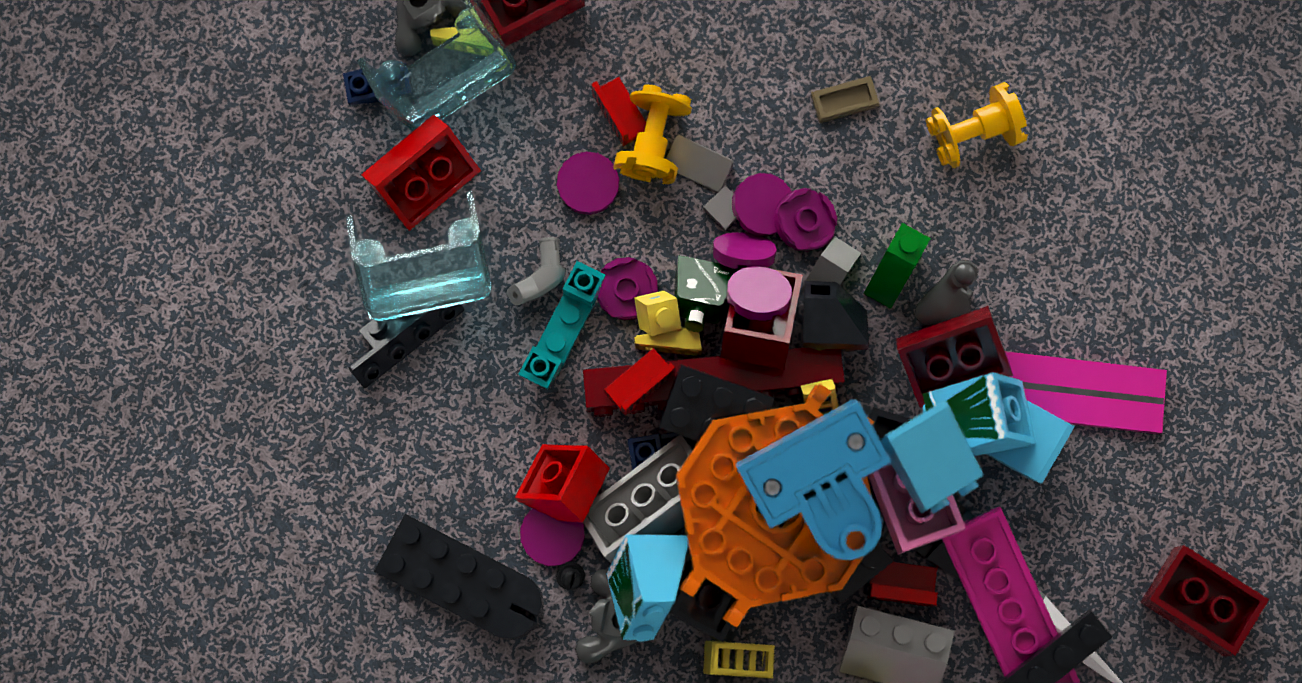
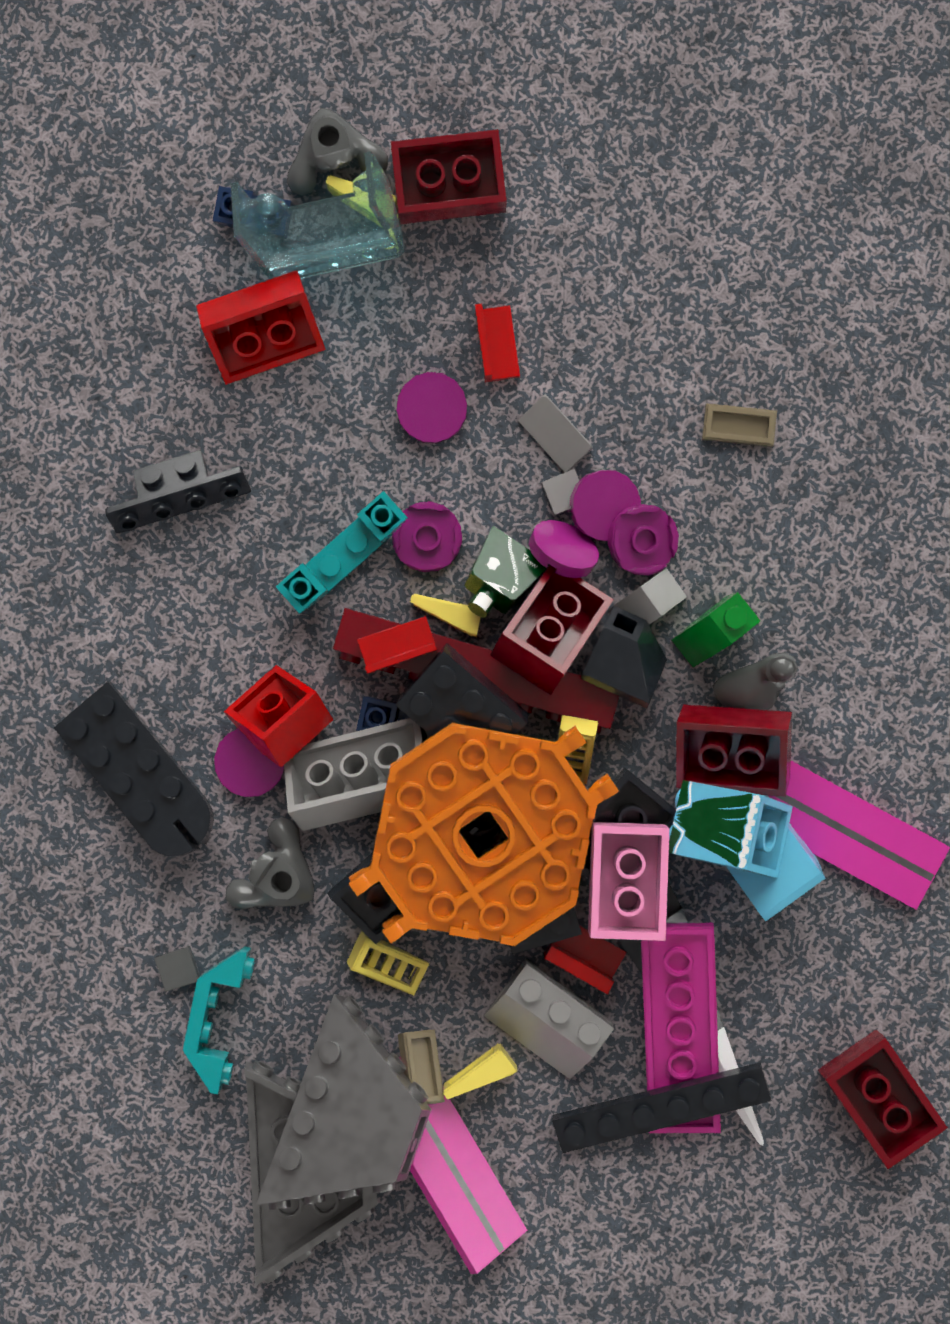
camera: 25 degrees right, 10 degrees up
(422, 277) = (216, 447): clear light blue windscreen -> none
(543, 279) = (342, 494): light grey arm -> none
(570, 575) = (251, 812): black piece -> none
(645, 582) = (318, 858): medium azure slope -> none
(650, 146) = (511, 396): yellow piece -> none
(657, 313) = (446, 578): light yellow brick -> none
(759, 293) = (557, 605): tile -> none
(821, 476) = (532, 832): dark azure brick -> none
(932, 458) = (659, 860): medium azure slope -> none
(1001, 116) = (893, 513): yellow piece -> none

